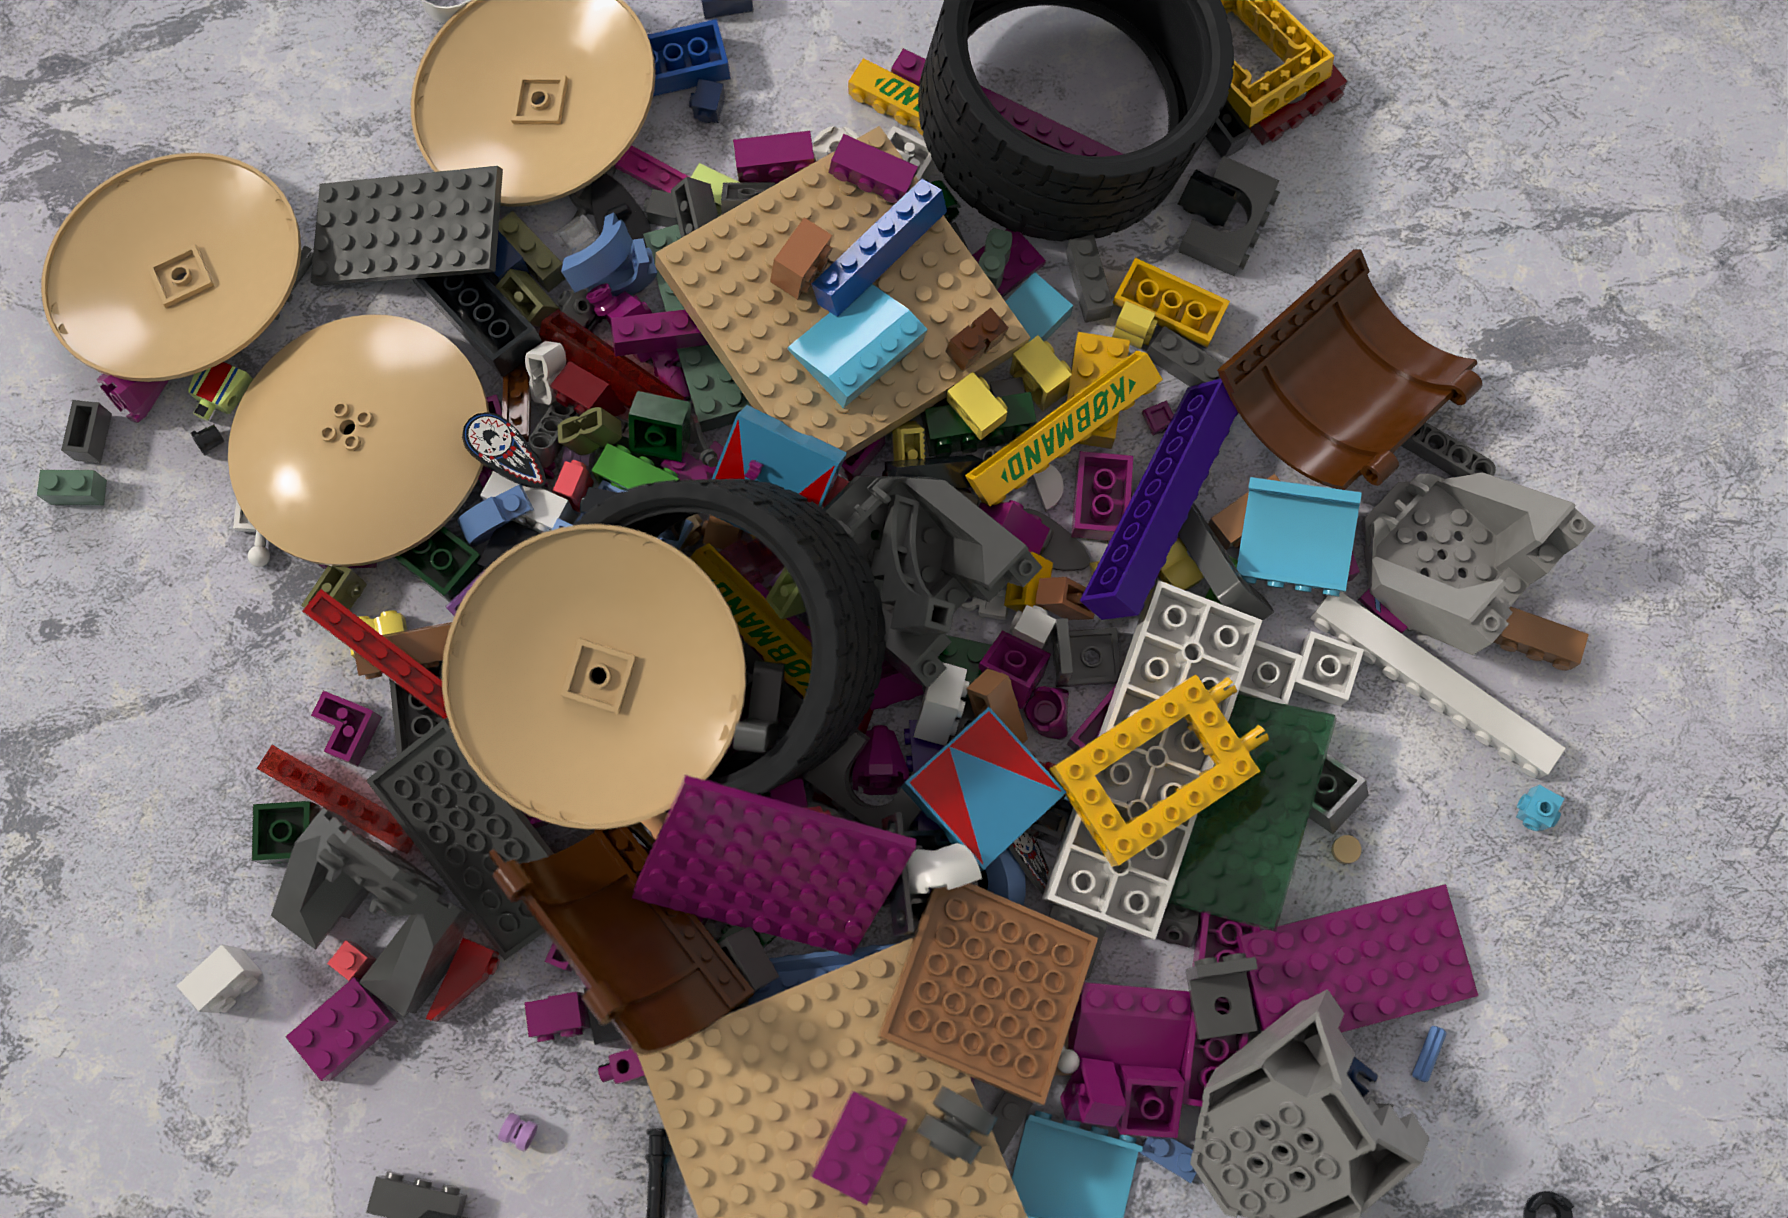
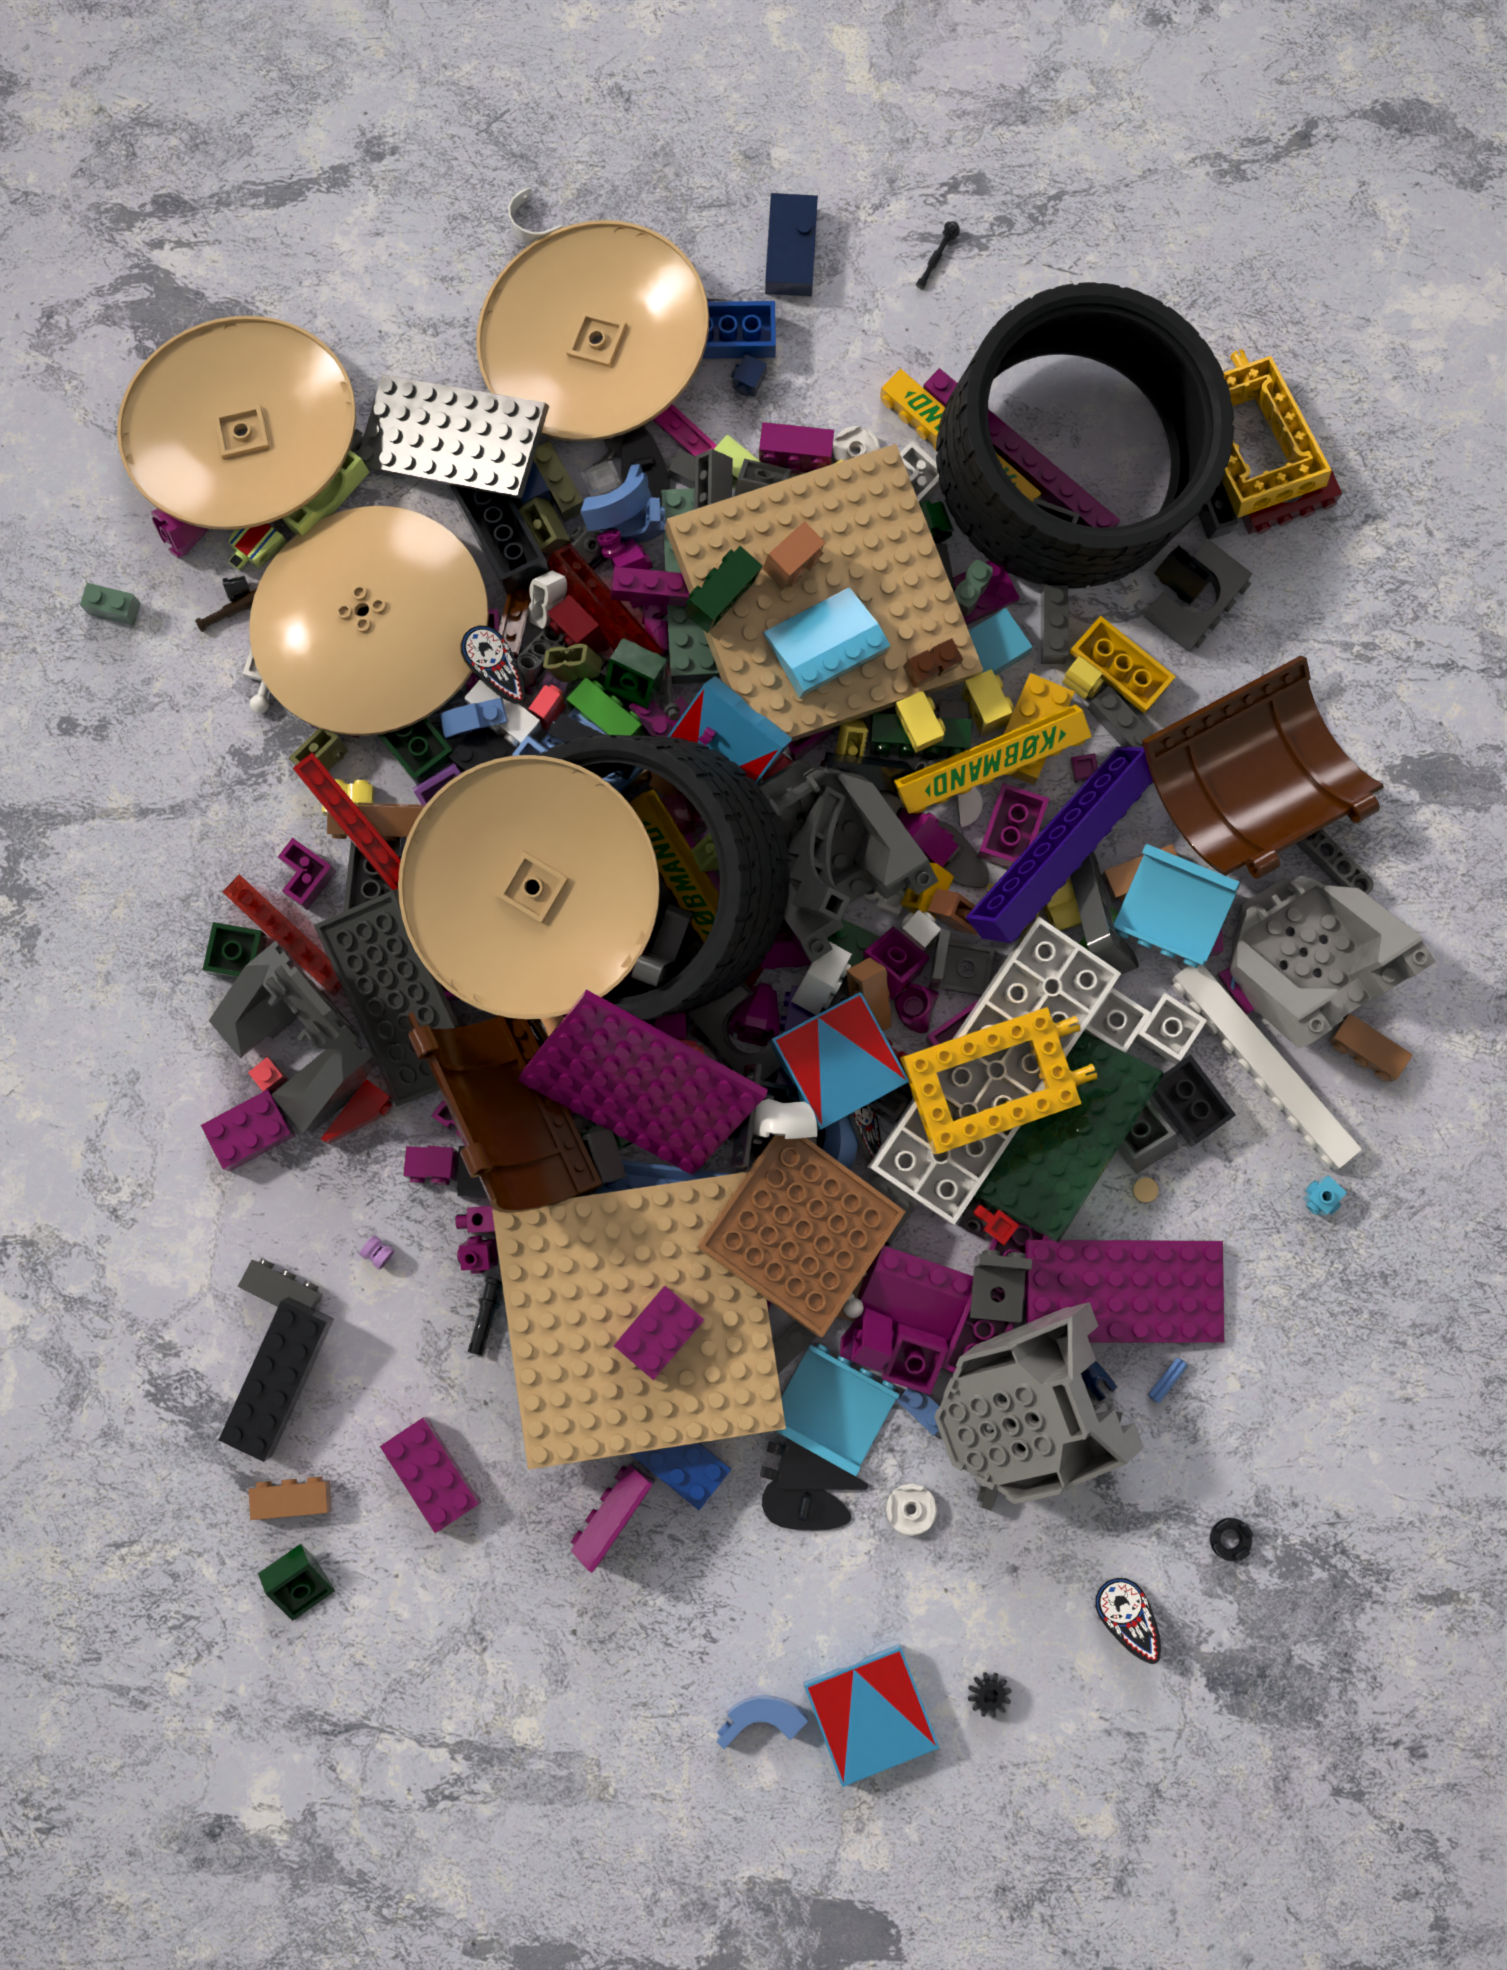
camera: 15 degrees right, 5 degrees up
(86, 431) = (132, 556): dark grey piece -> none
(207, 463) = (227, 611): none -> dark brown piece
(220, 980) = (155, 1064): white brick -> none
(291, 319) = (329, 499): none -> yellowish green arch
(632, 1106) = (477, 1254): none -> magenta brick
(733, 309) = (722, 588): none -> dark green brick
(872, 169) = (878, 486): magenta brick -> none
(879, 247) = (867, 559): blue brick -> none
(952, 1133) = (738, 1340): dark grey wheel -> none
(1203, 927) = (998, 1225): none -> red plate
(1372, 741) = (1192, 1101): none -> black brick

